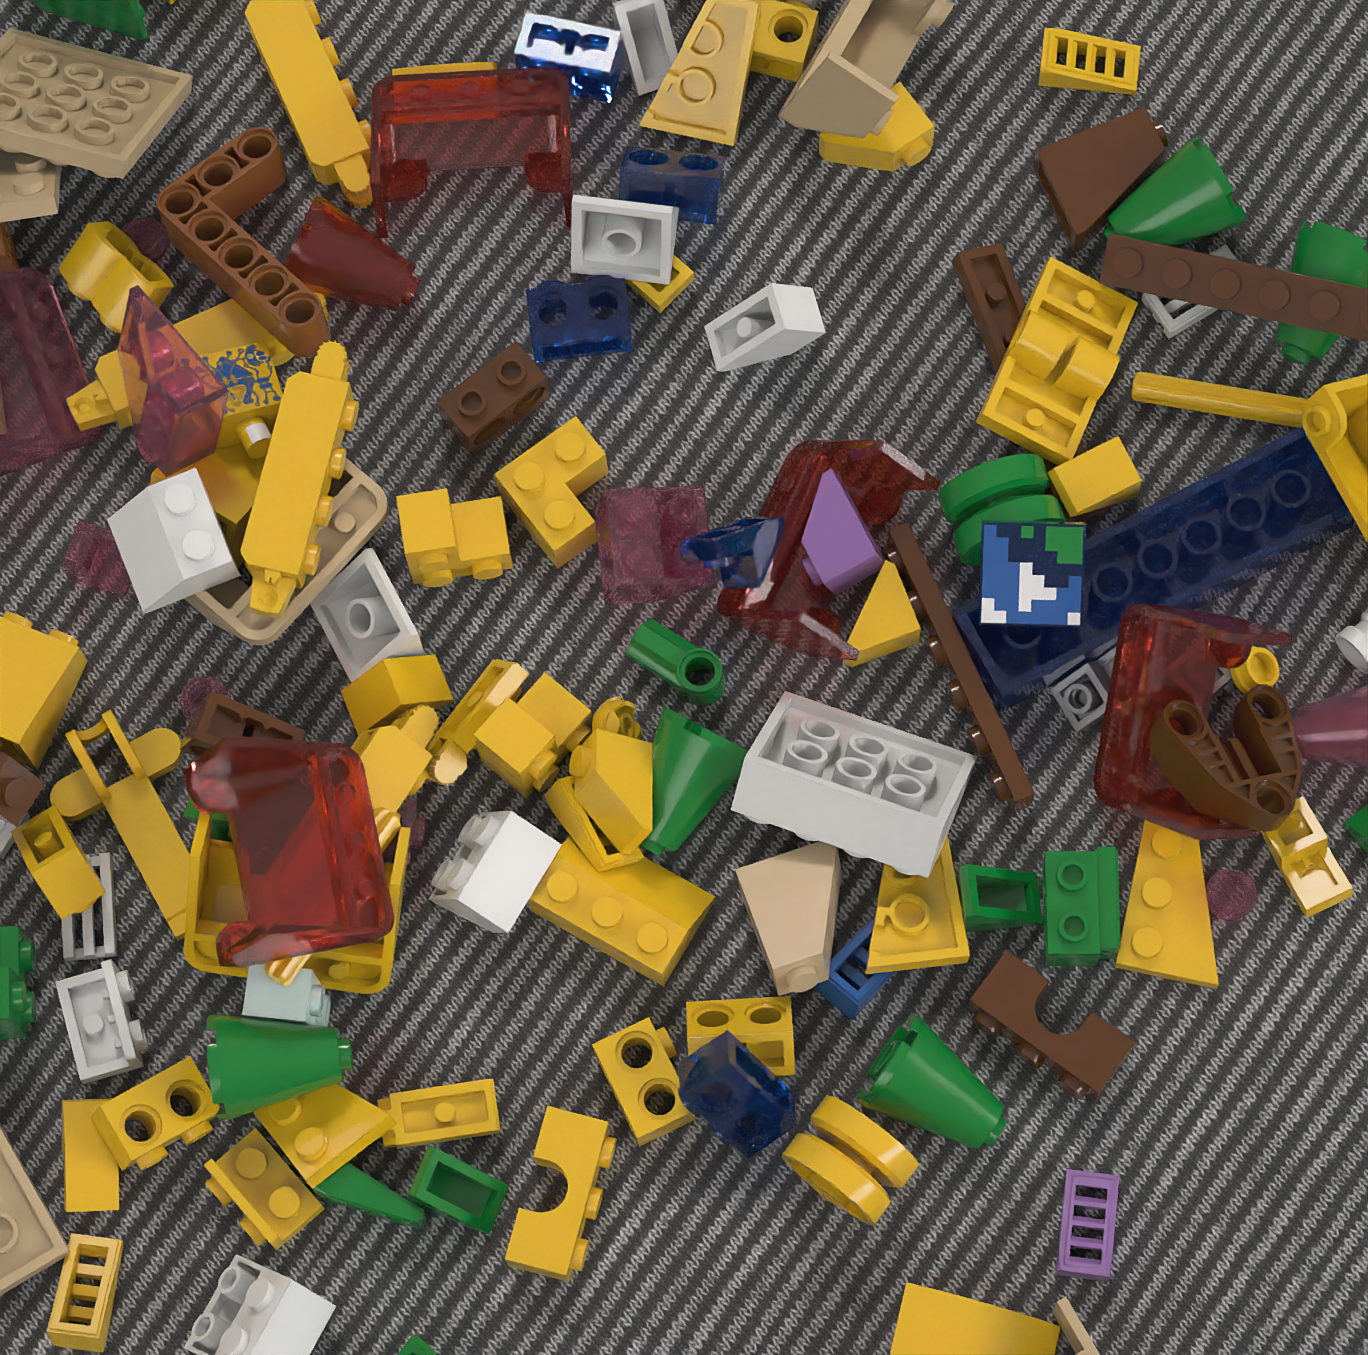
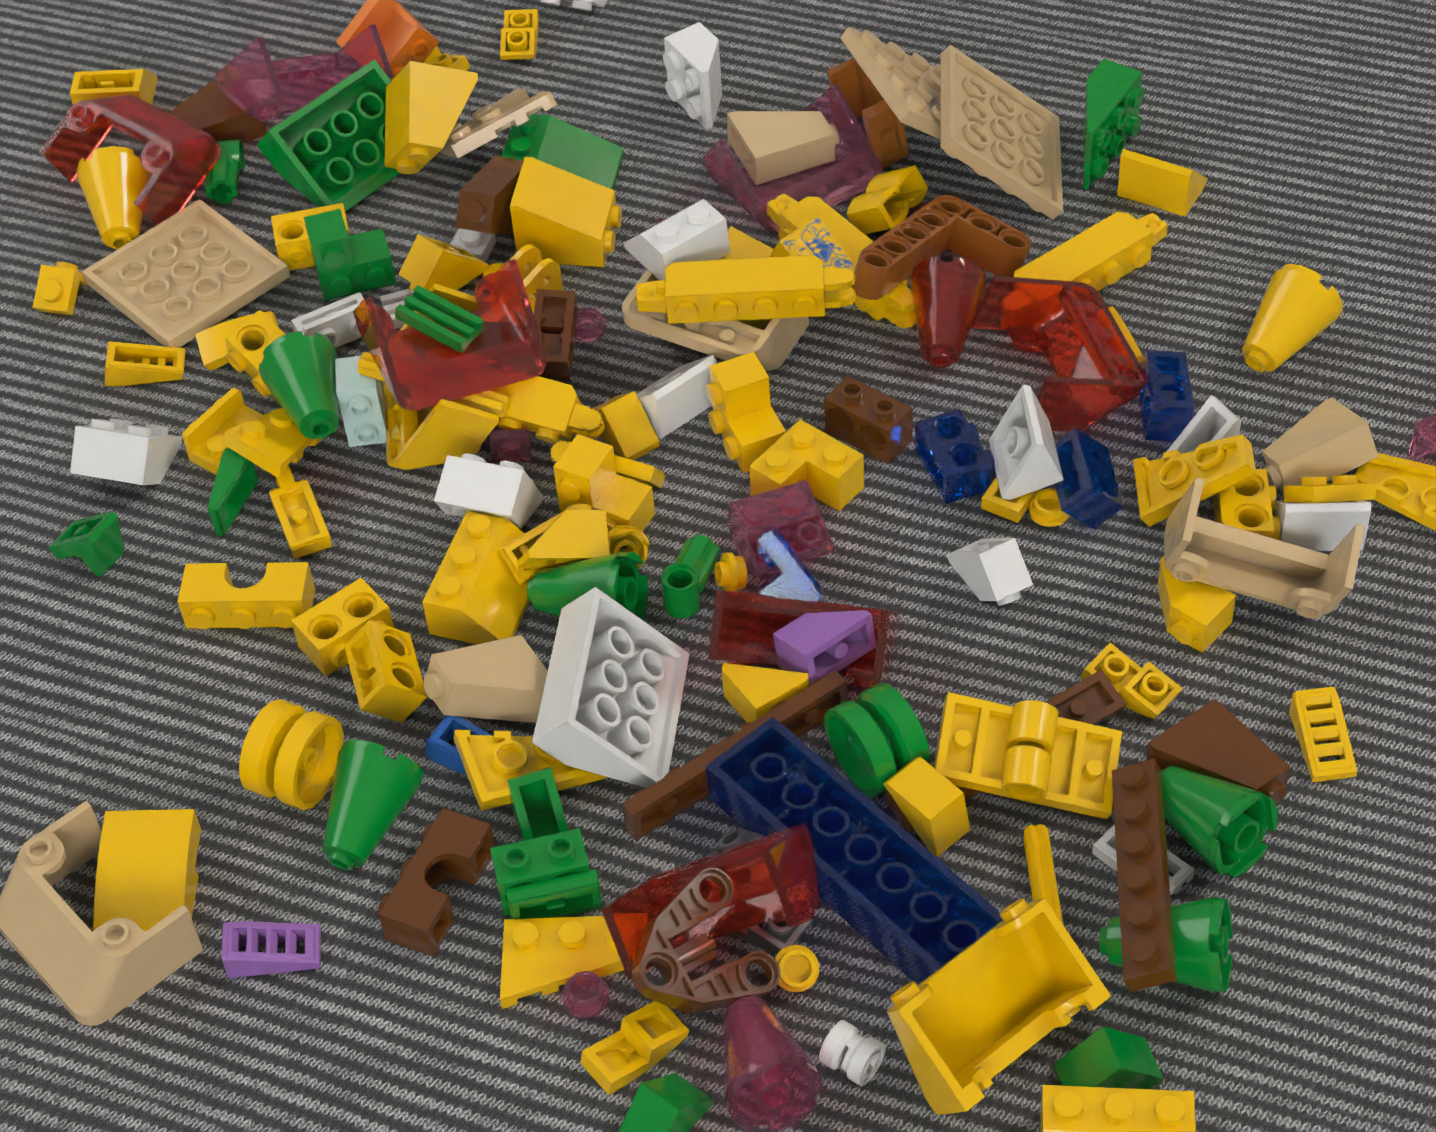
camera: 75 degrees right, 25 degrees down
(168, 388) = (788, 202): clear pink slope -> none
(237, 847) = (443, 315): none -> green tile
(457, 1191) = (241, 530): green slope -> none
(687, 614) = (731, 572): none -> yellow plate
(692, 241) = (1046, 510): none -> yellow plate
(736, 1095) = (333, 669): clear blue brick -> none
(969, 224) = (1142, 689): none -> yellow slope
(1031, 573) = (812, 747): tile -> none

